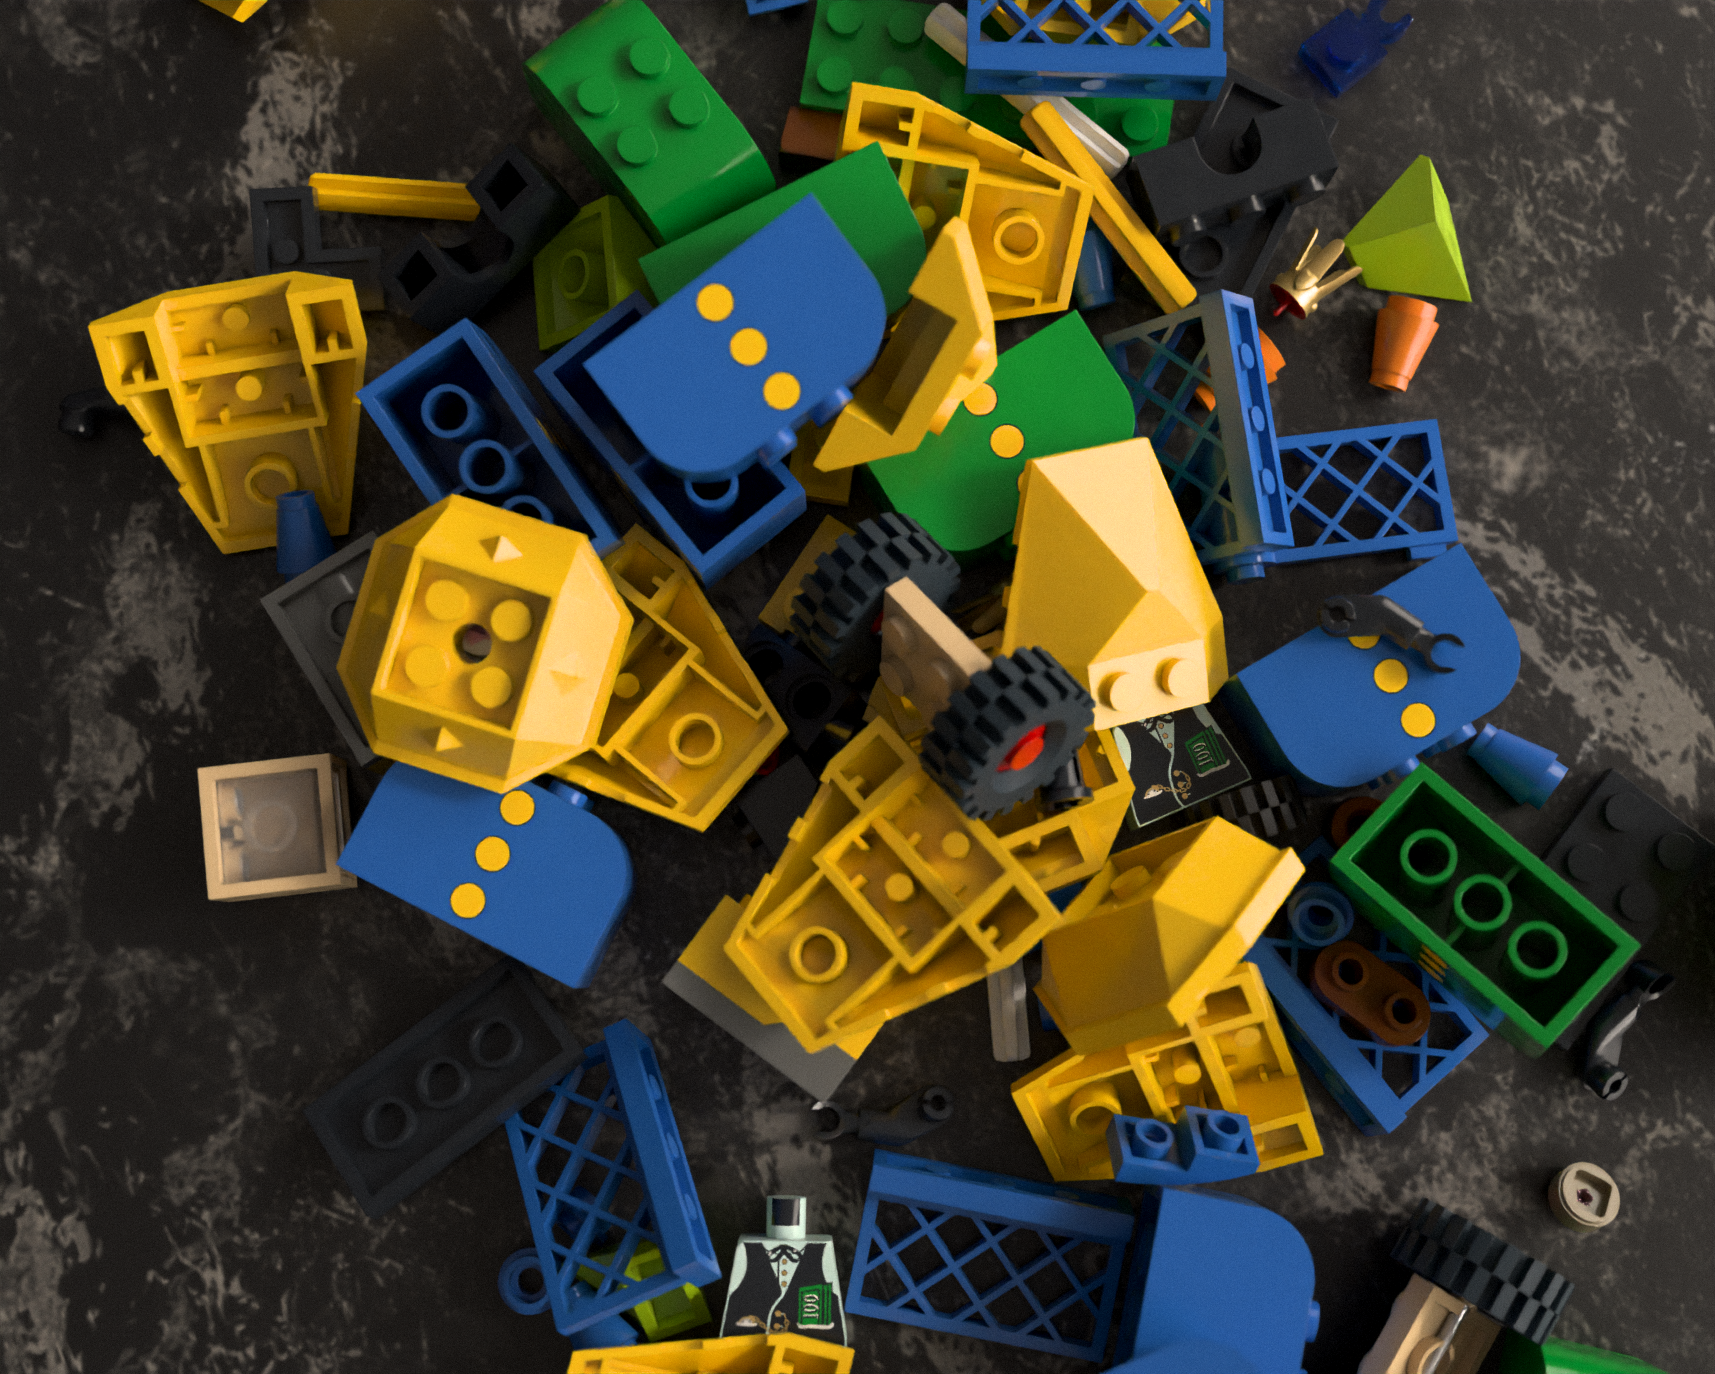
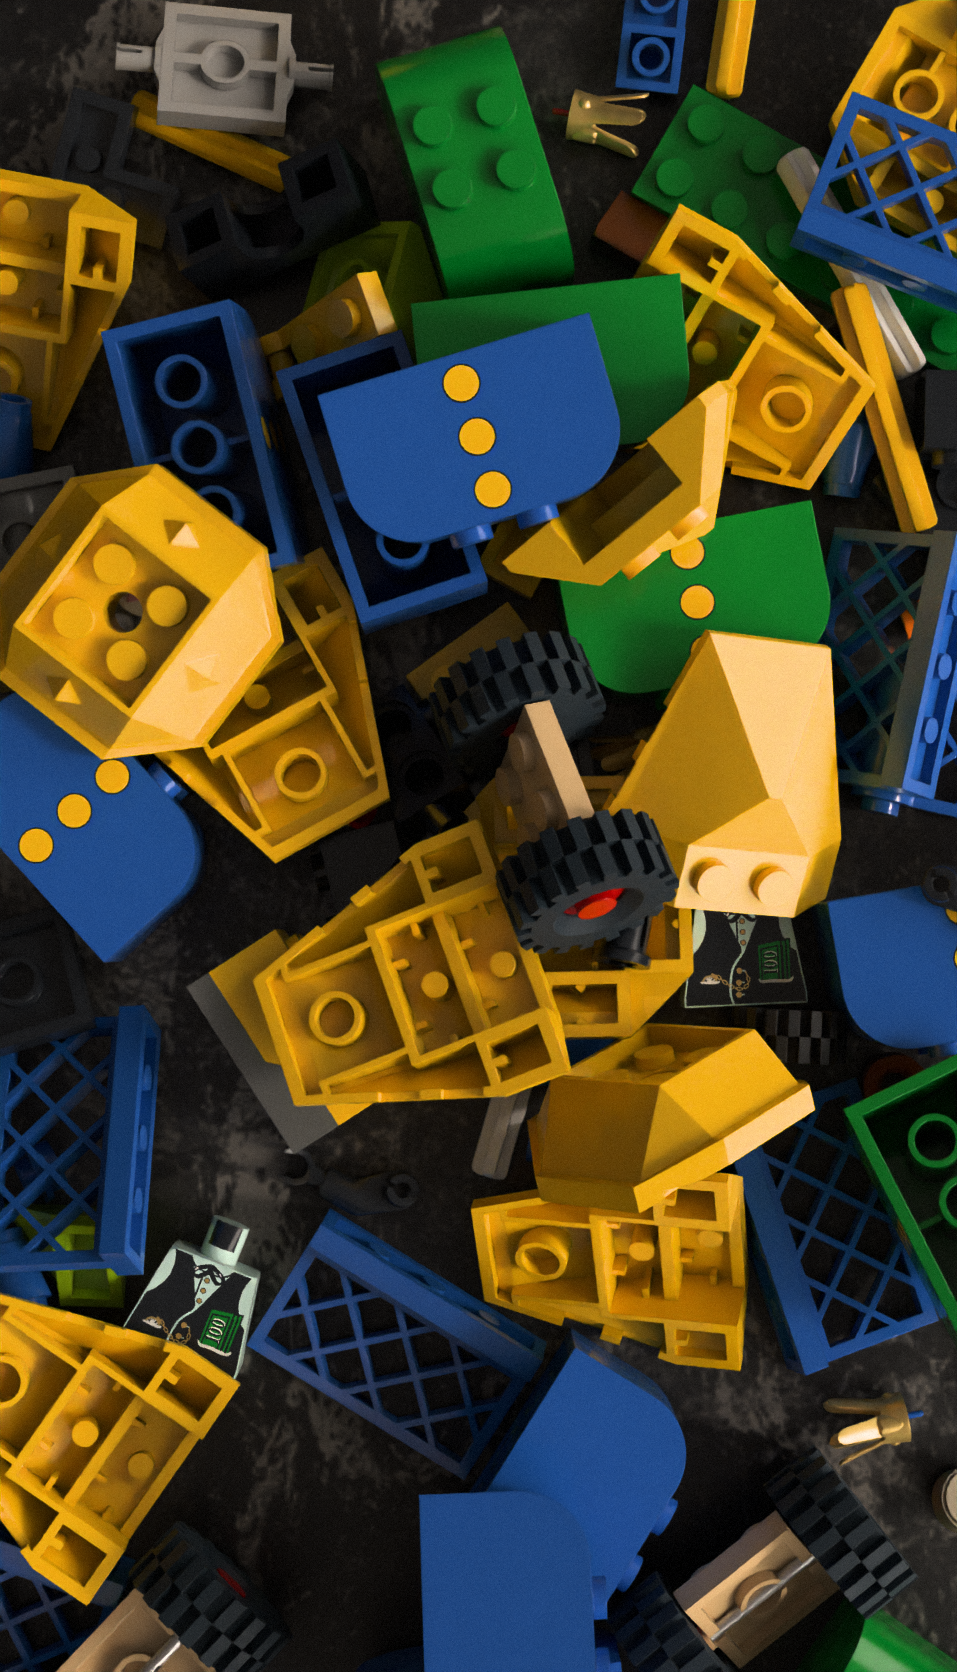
camera: 20 degrees right, 5 degrees up
(383, 125) = (224, 69): none -> light grey plate
(578, 301) = (337, 321): none -> yellow plate
(735, 43) = (590, 109): none -> pearl gold piece
(1195, 1150) = (617, 1323): blue slope -> none
(1321, 929) = (815, 1163): blue plate -> none
(1370, 996) = (841, 1242): reddish brown plate -> none
(1483, 1152) = (888, 1426): none -> pearl gold piece

